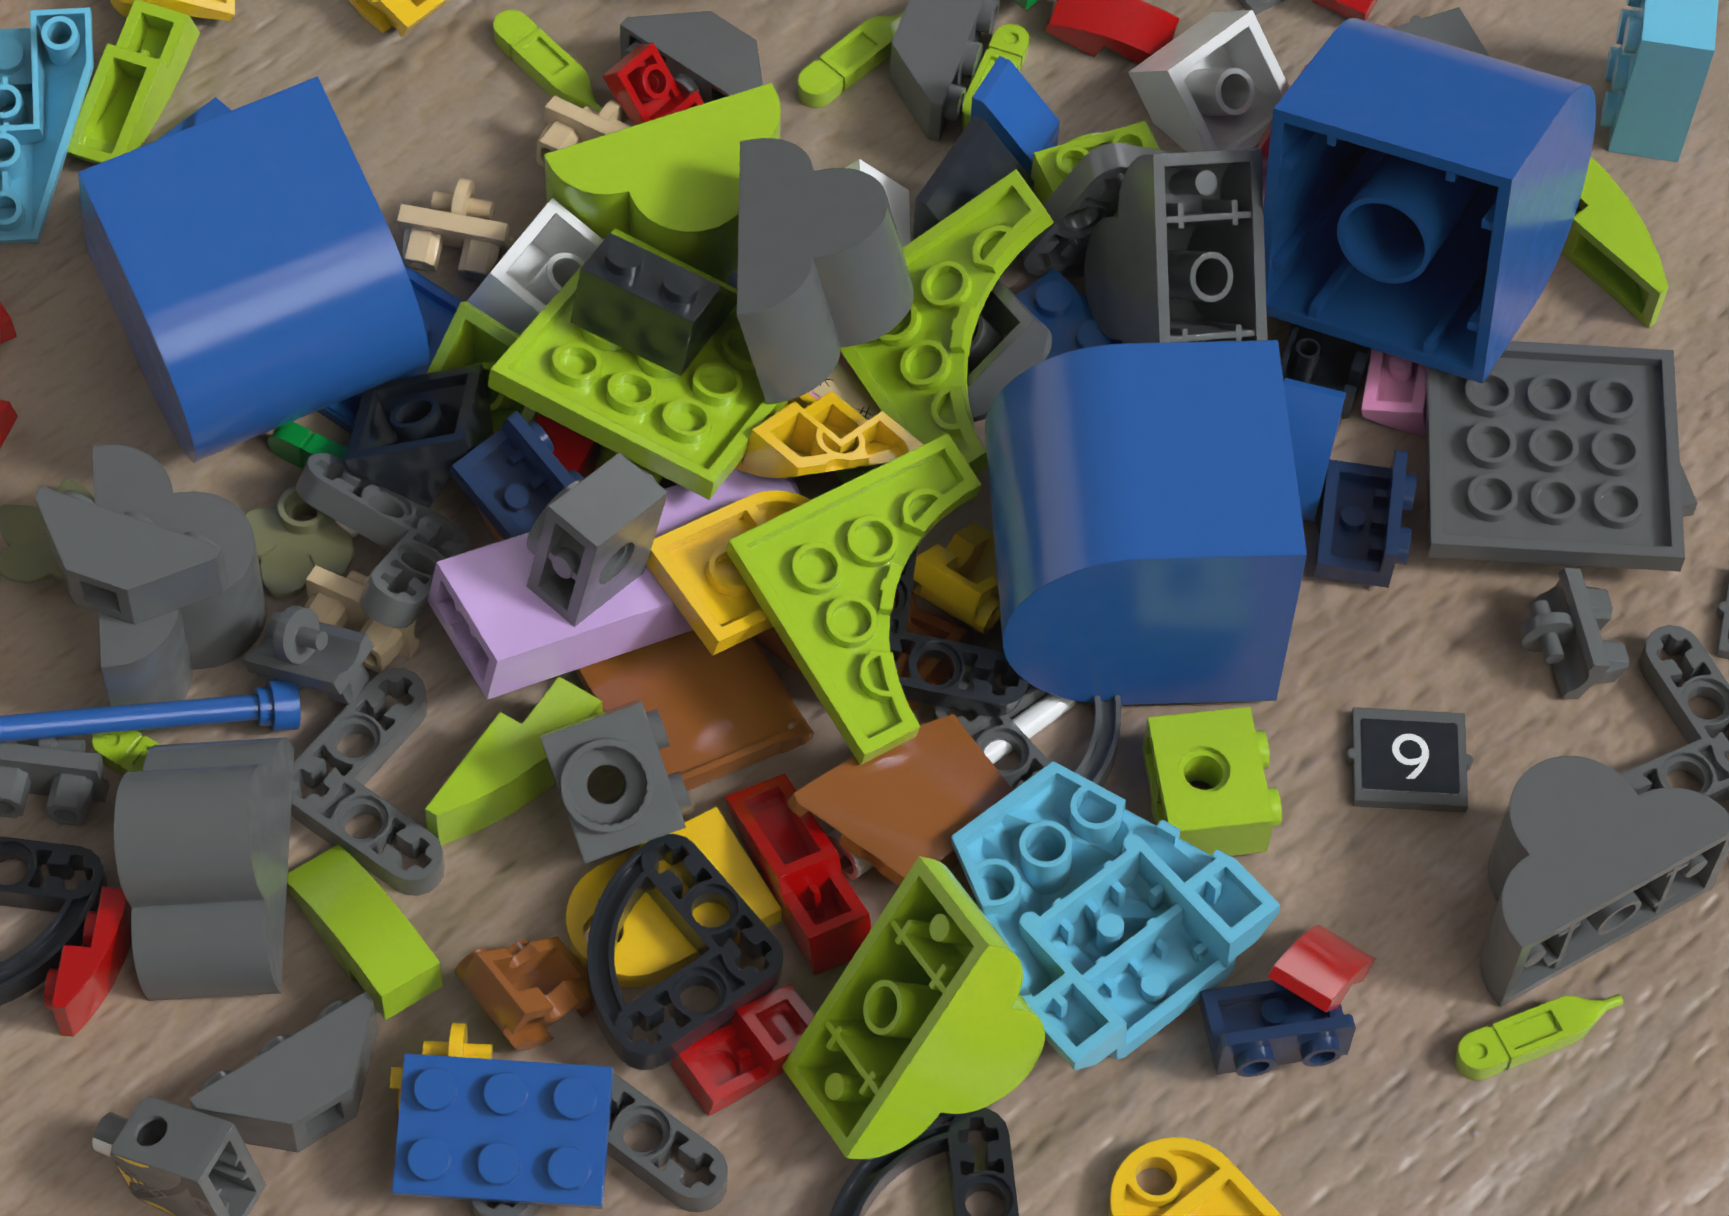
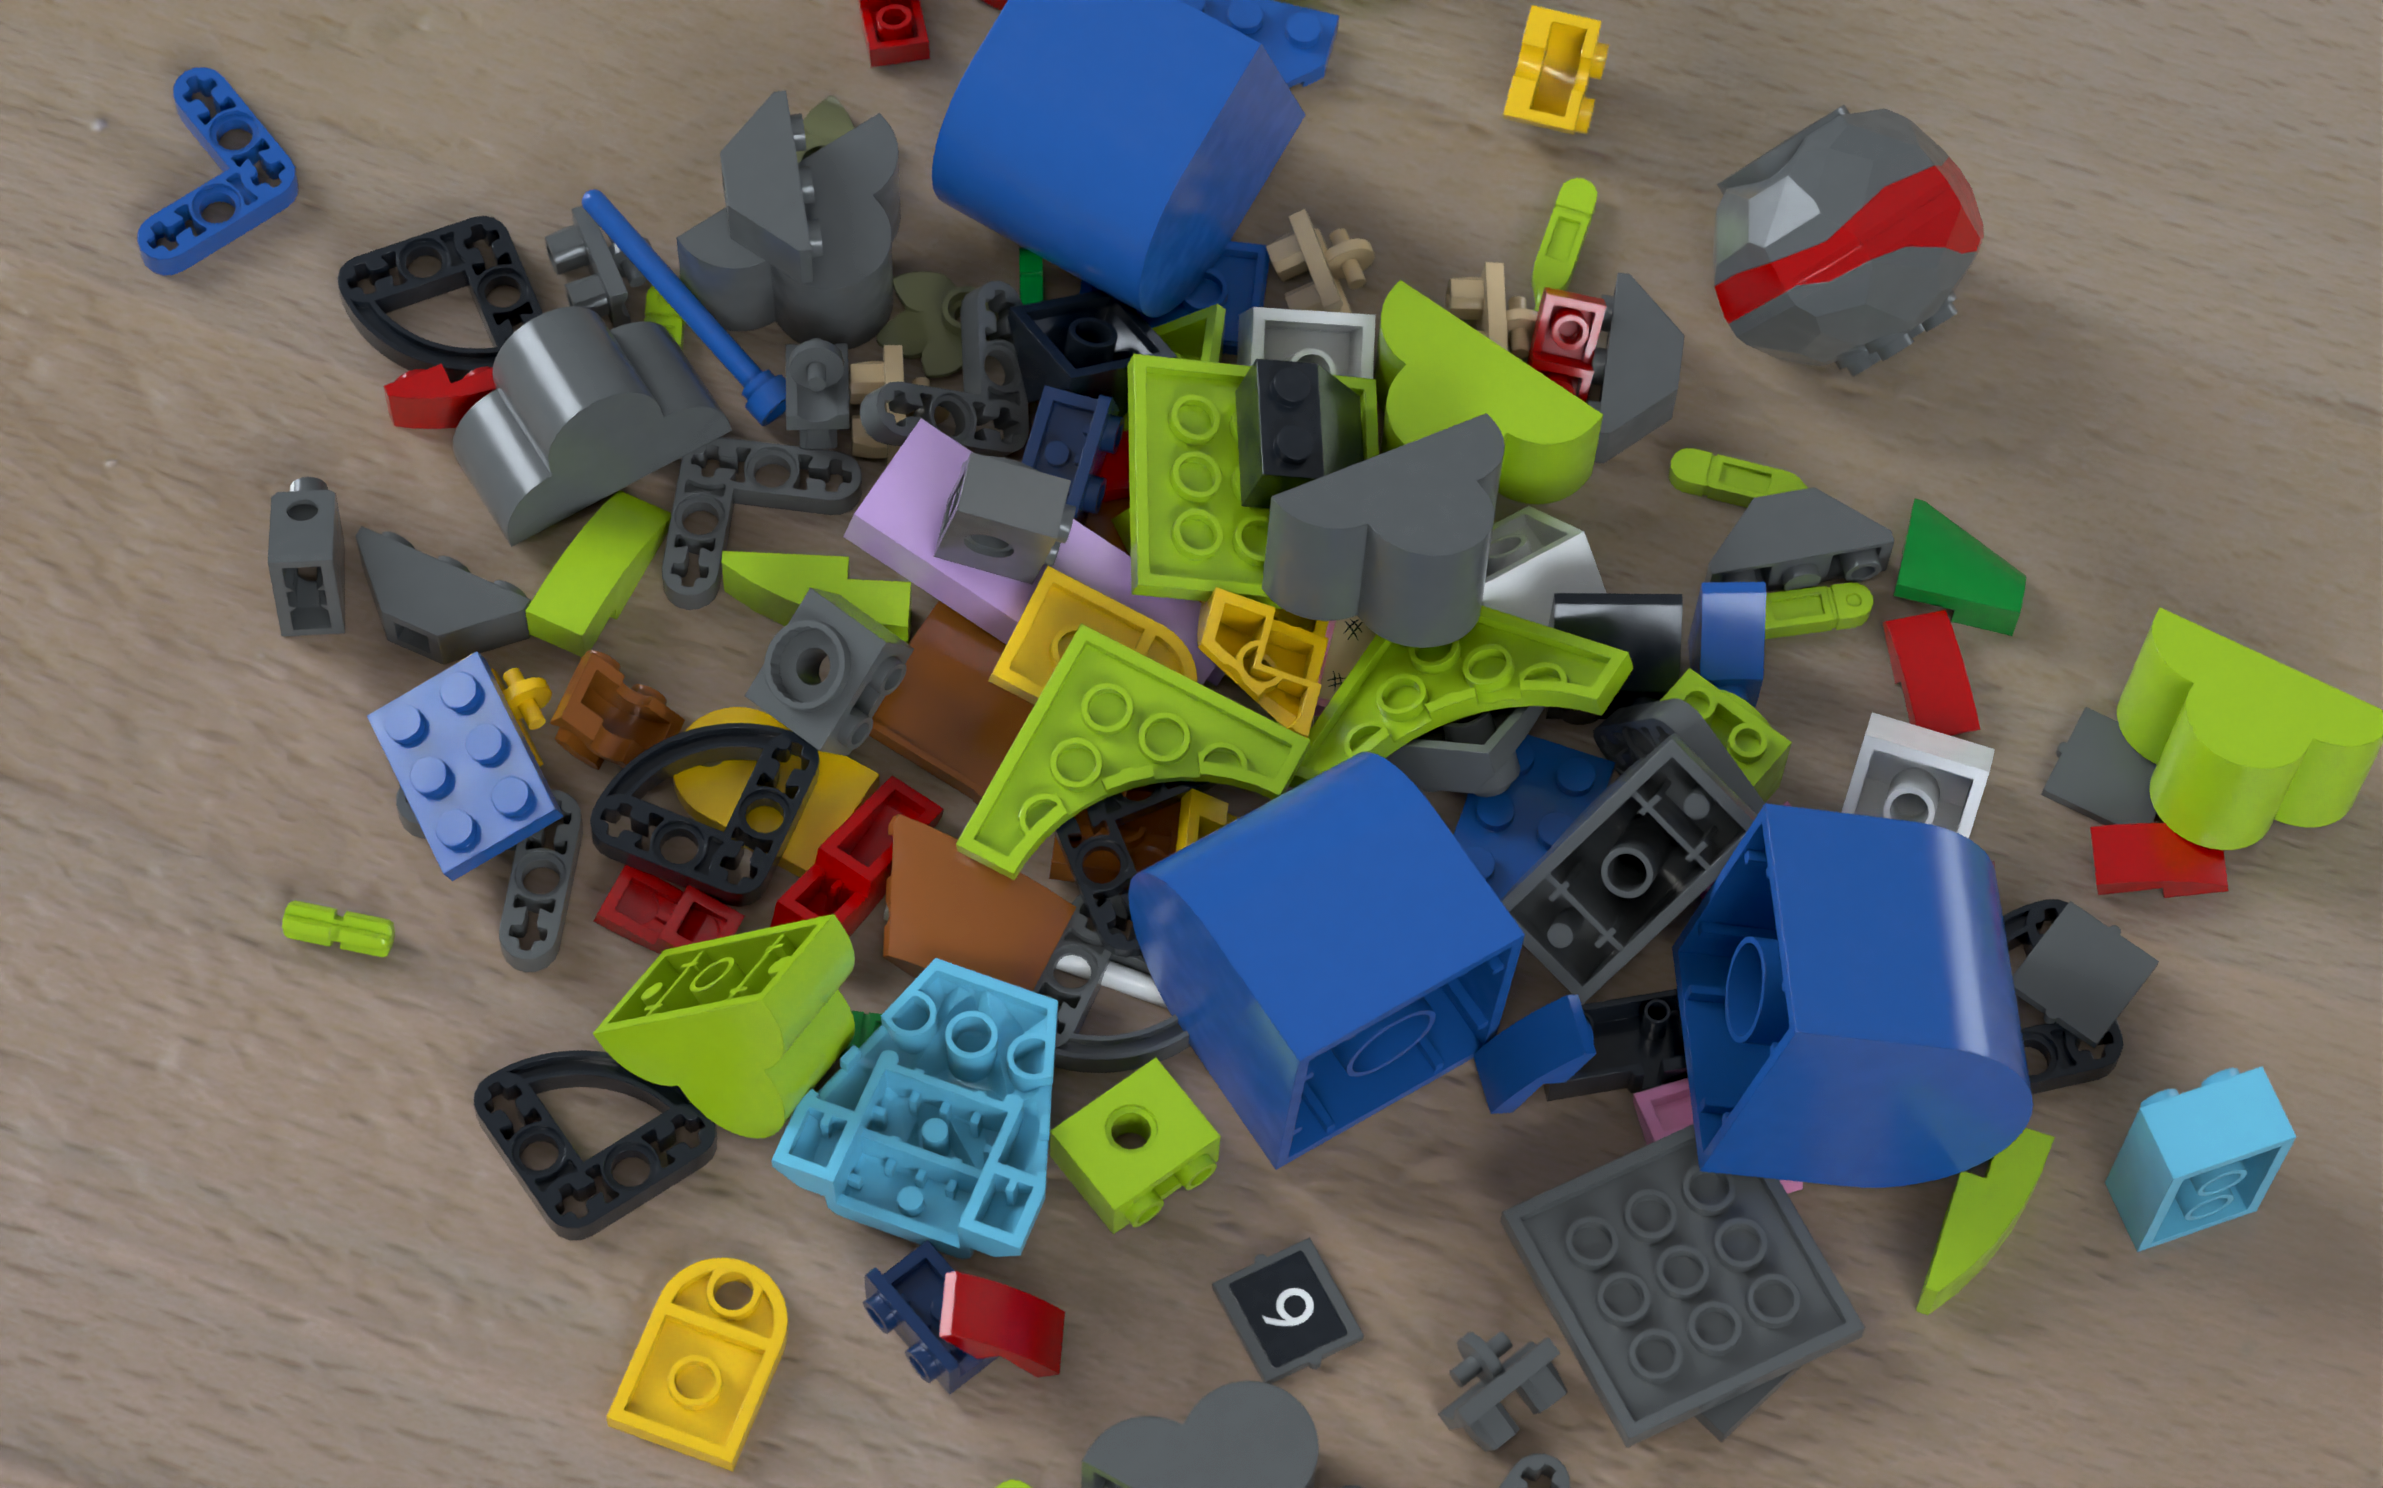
camera: 60 degrees right, 5 degrees up
(1362, 521) = (1507, 1150): dark blue bracket -> none

